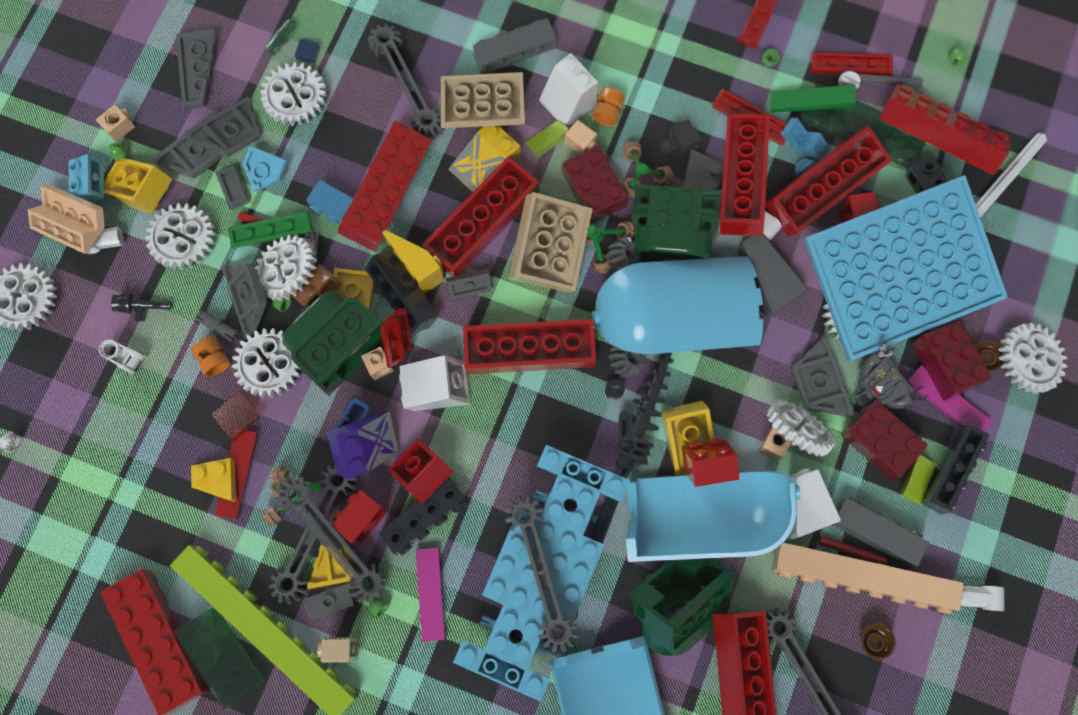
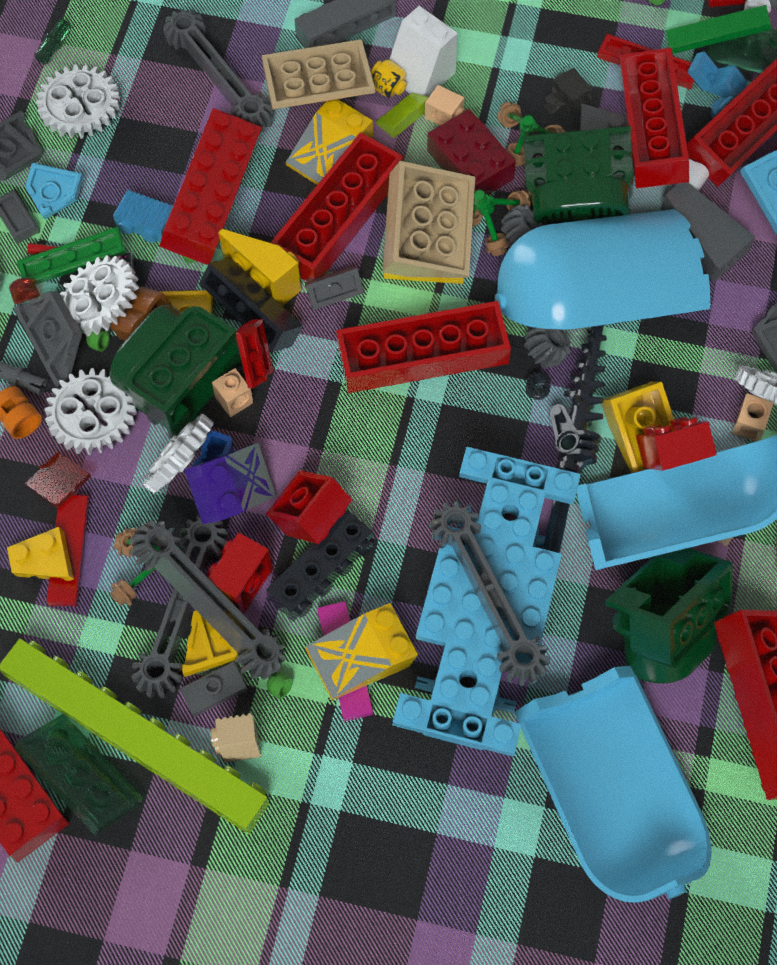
camera: 10 degrees left, 10 degrees down
(230, 253) = (23, 290): none -> clear red tile
(307, 51) = (88, 53): dark blue tile -> none
(325, 414) = (178, 453): none -> white gear
(434, 384) = (309, 406): white slope -> none
(441, 594) = (362, 652): none -> yellow slope
(539, 107) = (388, 78): none -> yellow head
(608, 106) = (472, 68): orange wheel -> none

